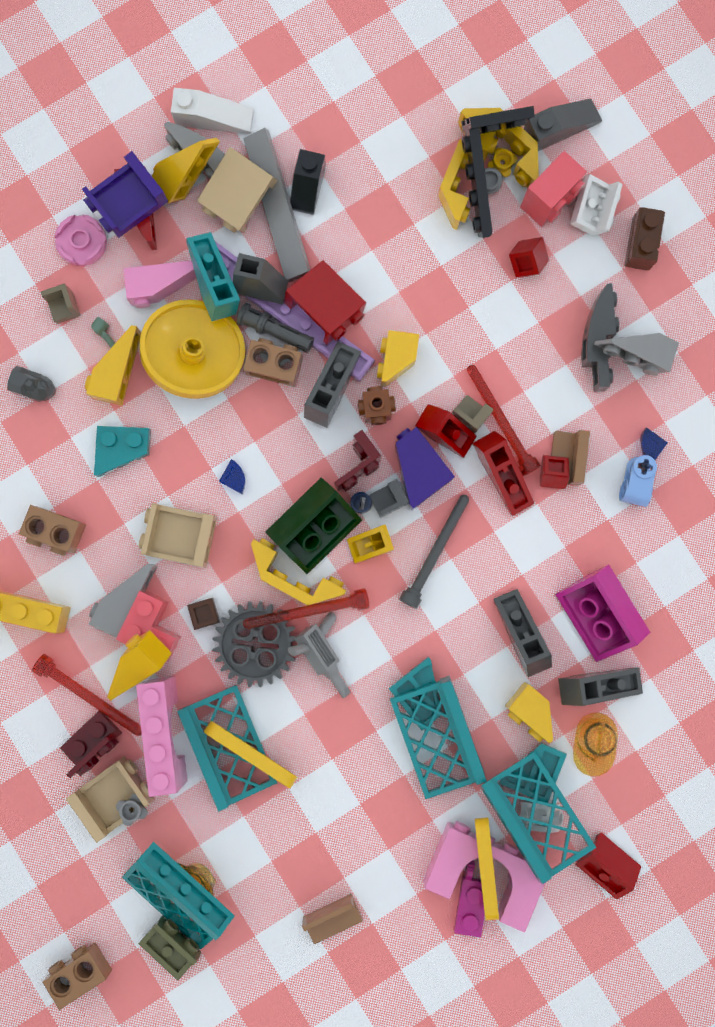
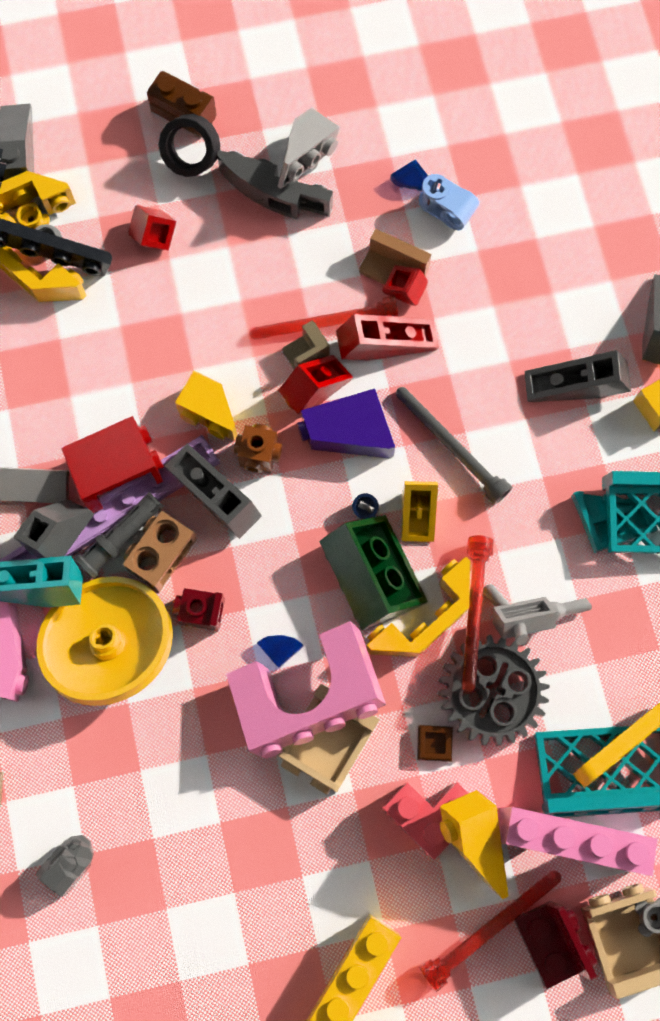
camera: 70 degrees left, 10 degrees down
(53, 525) = (257, 895): medium nougat brick -> none
(99, 327) = (29, 751): sand green hand -> none
(112, 373) = (93, 752): yellow slope -> none
(113, 608) = (391, 845): light grey slope -> none
(119, 447) = (189, 778): teal wing -> none
(211, 539) = (351, 694): none -> bright pink arch
(245, 416) = (208, 617): none -> dark red brick
(364, 450) = (307, 474): dark red bracket -> none
(389, 498) = (372, 473): dark grey panel -> none
(554, 189) = (89, 171): coral brick -> none
(594, 249) = (168, 151): none -> black tyre
(596, 205) = (123, 139): white bracket -> none
(603, 613) = (584, 288): dark pink slope -> none

